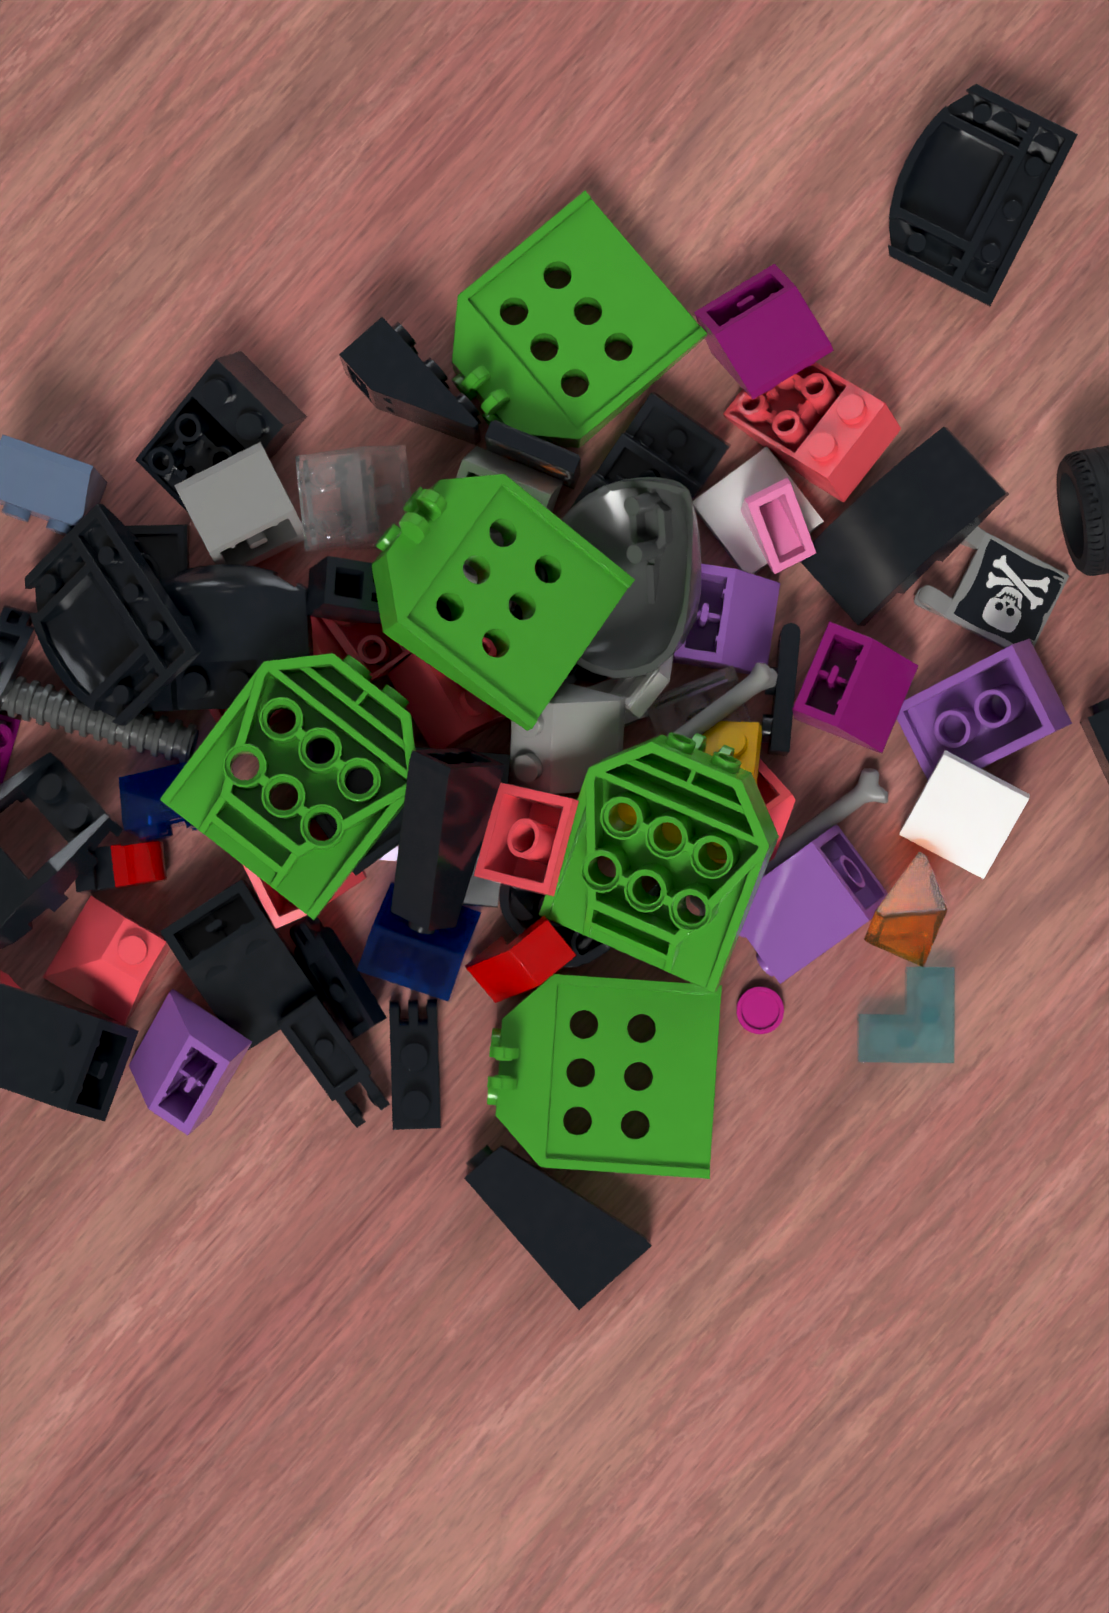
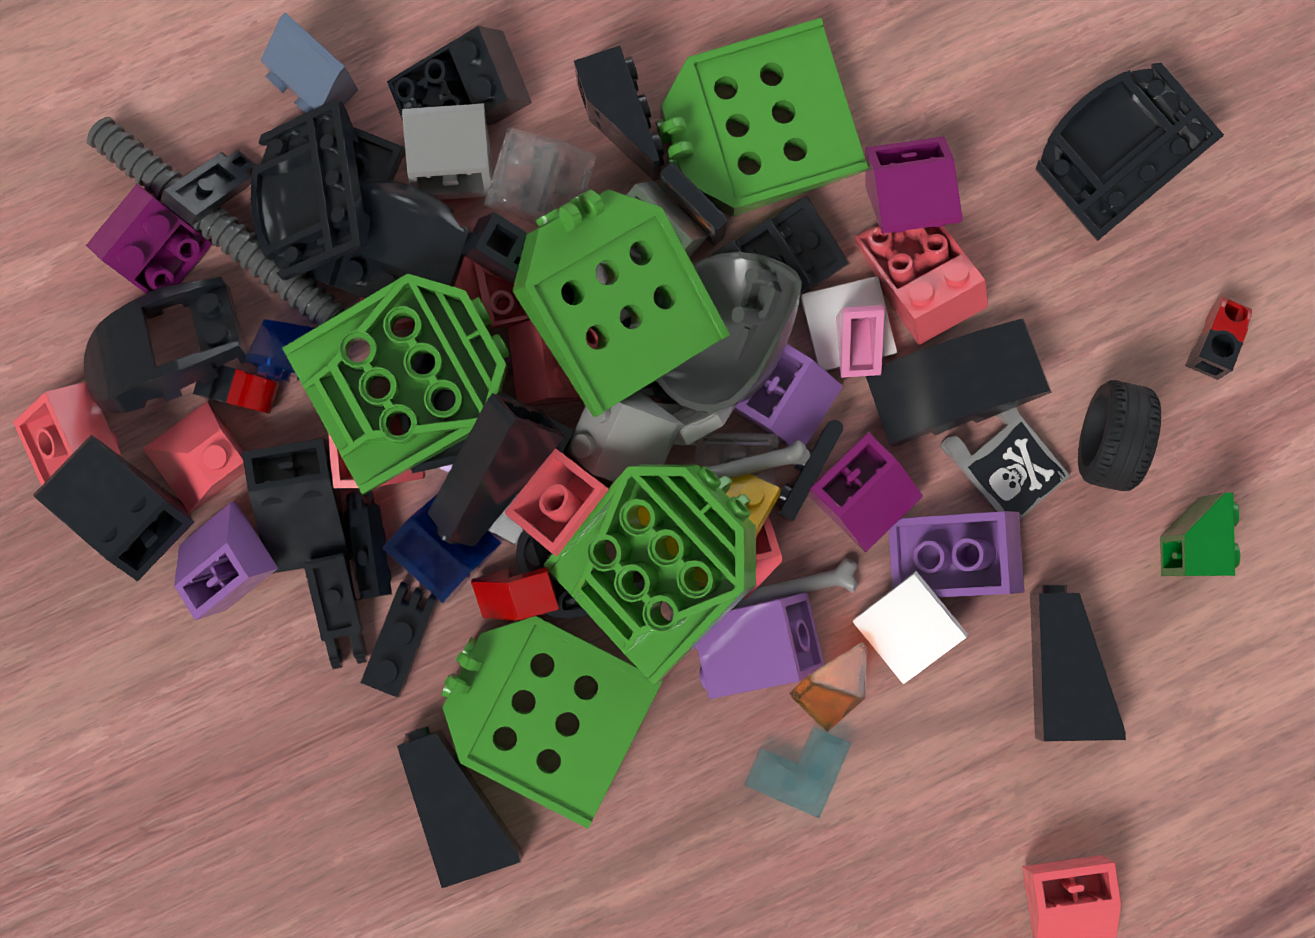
camera: 15 degrees right, 0 degrees up
(760, 1010) = (685, 711): dark pink piece -> none

